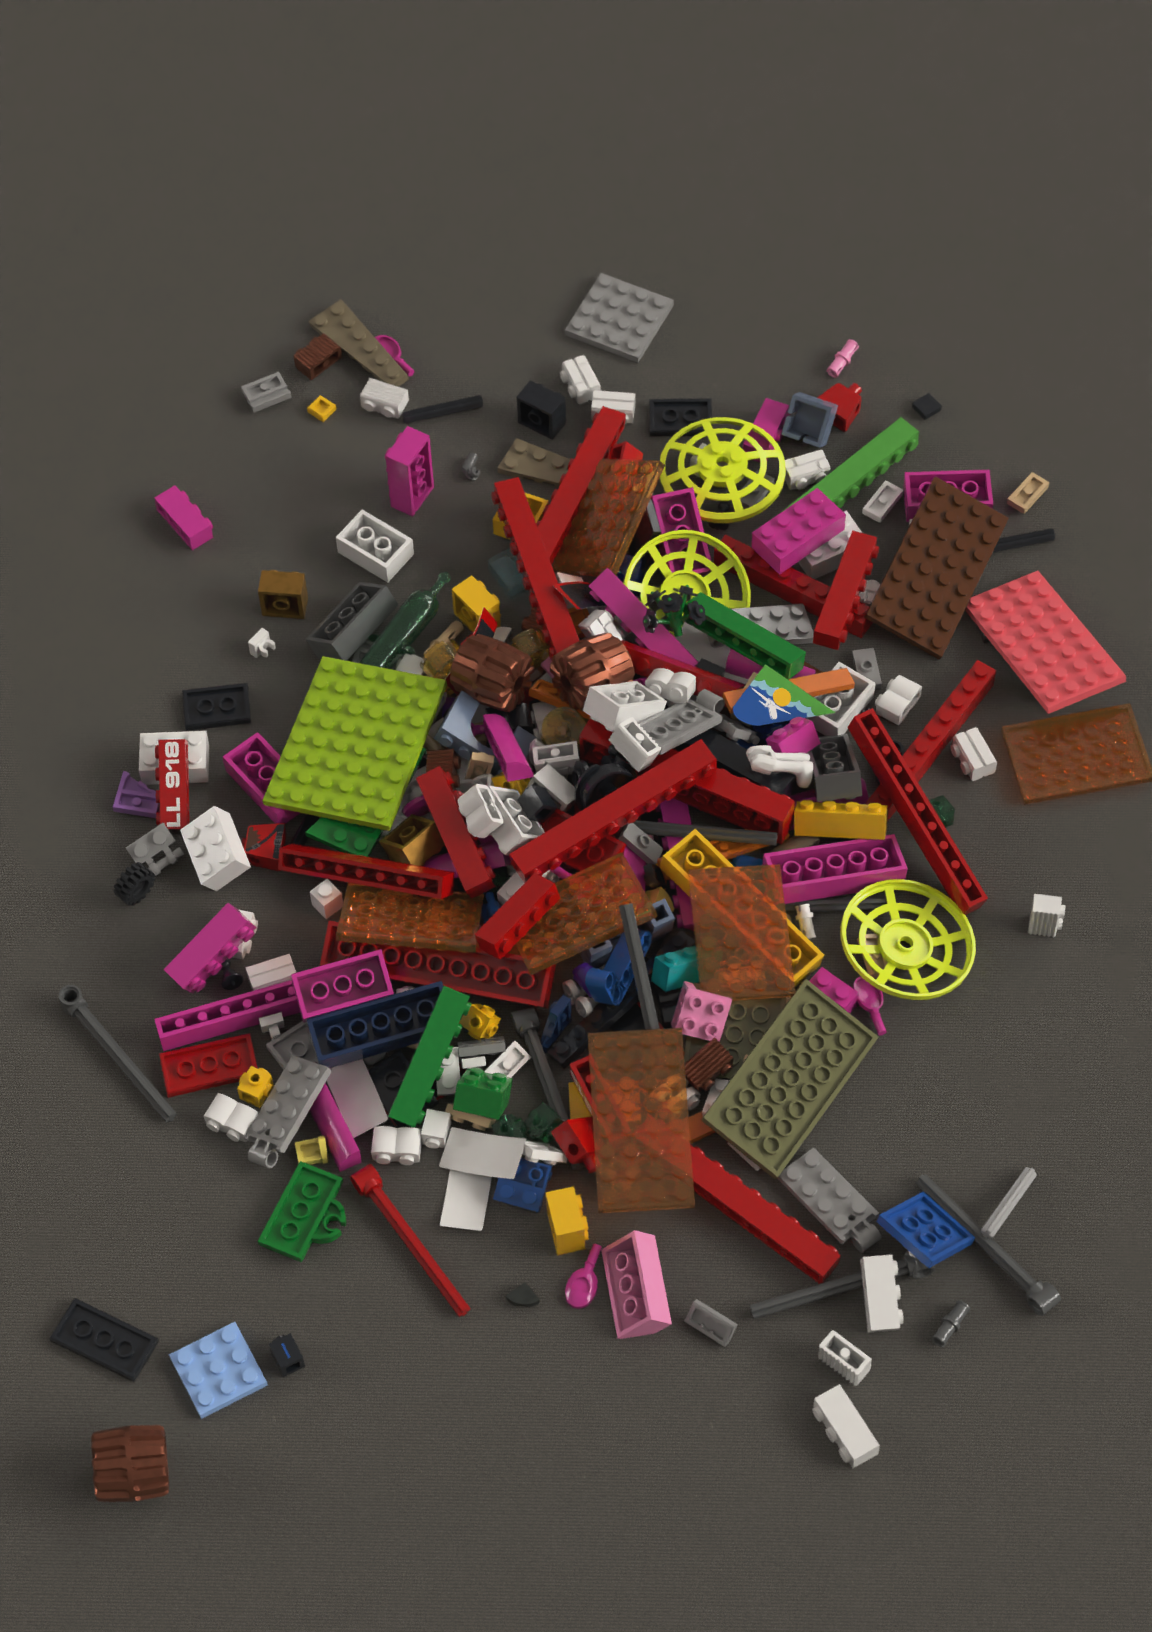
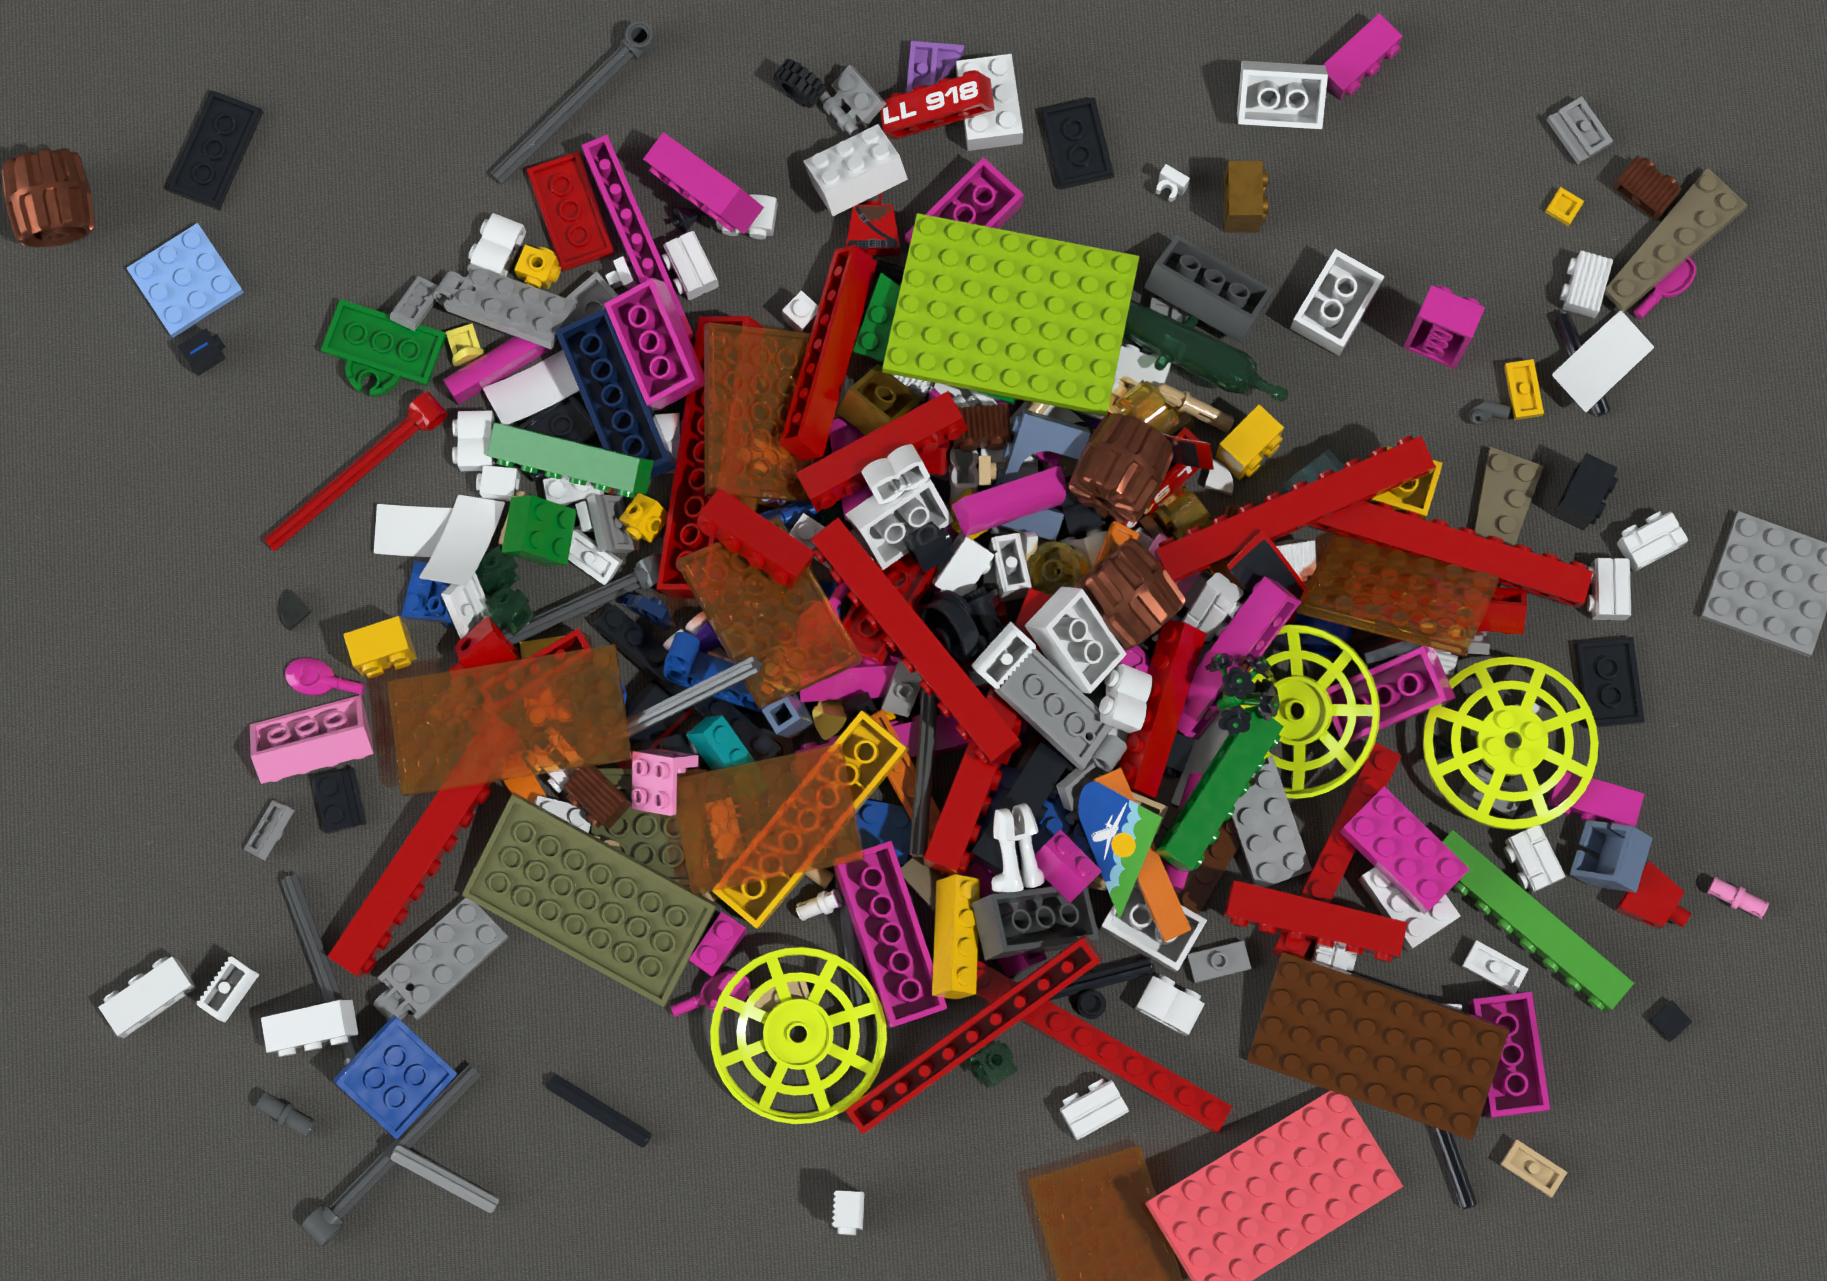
camera: 85 degrees right, 20 degrees up
(207, 562) = (1282, 94): none -> white brick
(271, 1182) = (414, 304): none -> light grey plate
(442, 394) = (1602, 361): none -> white sticker
(457, 443) = (1524, 389): none -> yellow plate
(689, 1270) = (339, 800): none -> black plate
(958, 1091) = (599, 1111): none -> black axle

